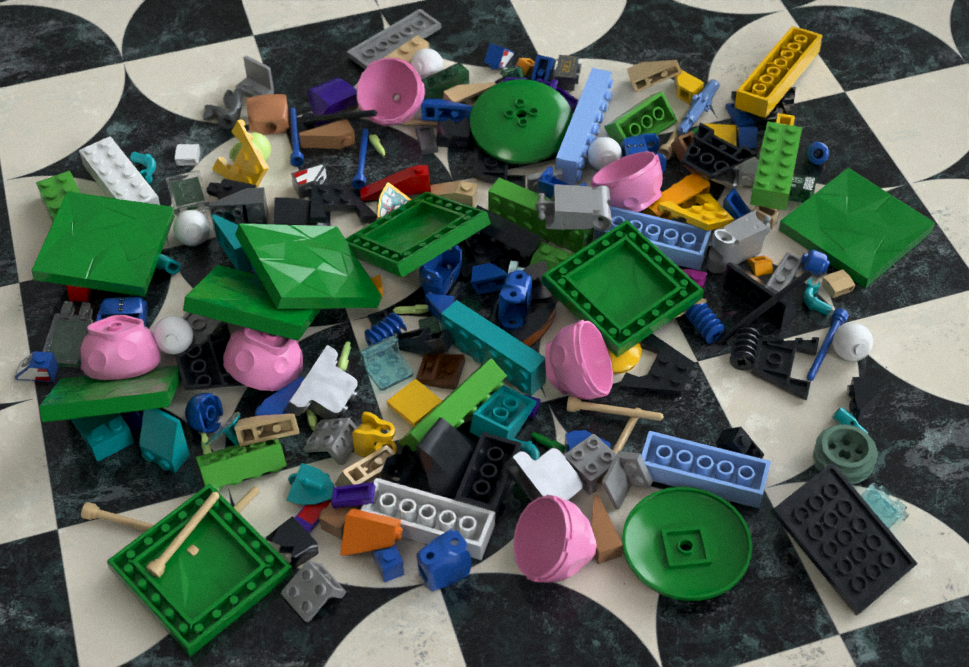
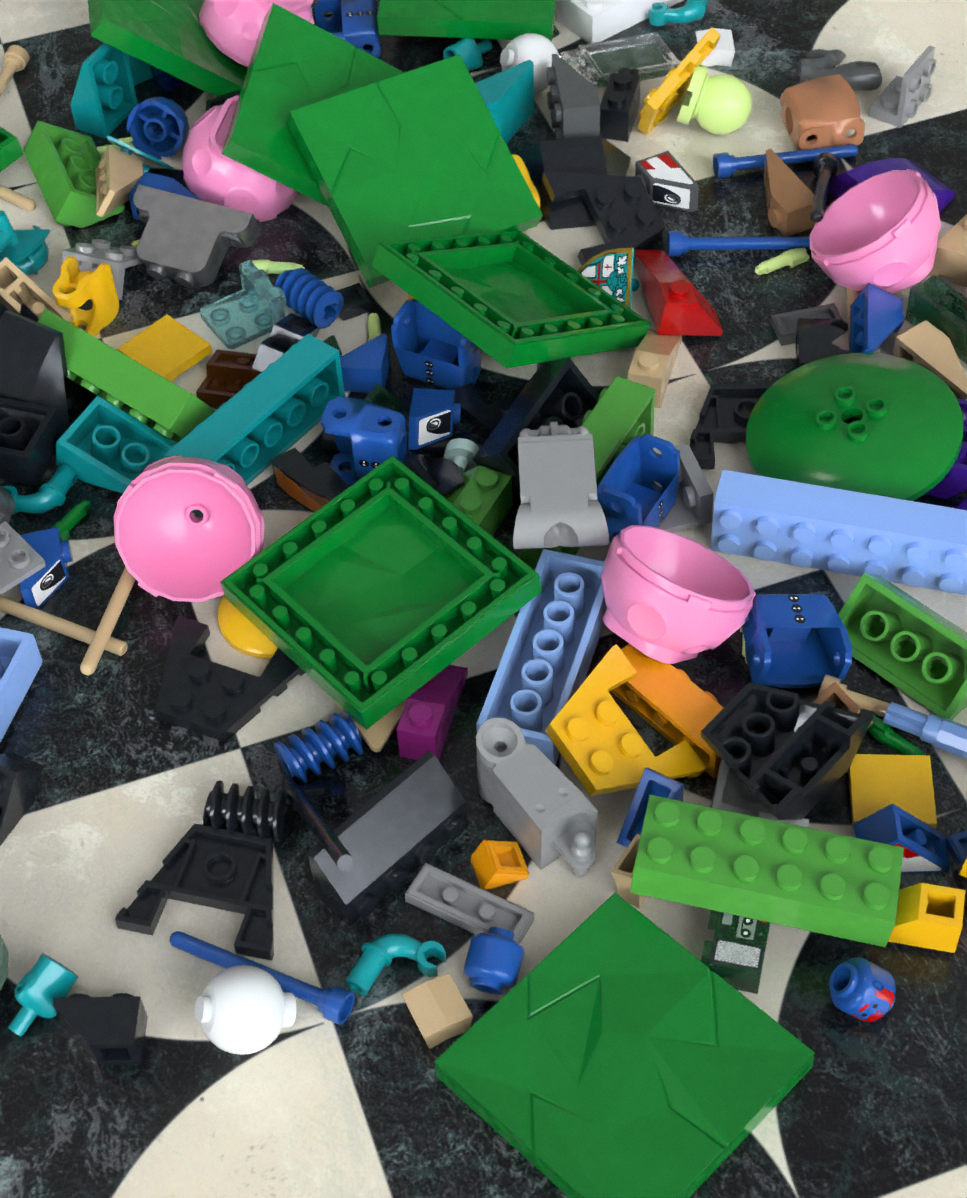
camera: 90 degrees right, 0 degrees up
(603, 152) = (783, 566): white brick -> none

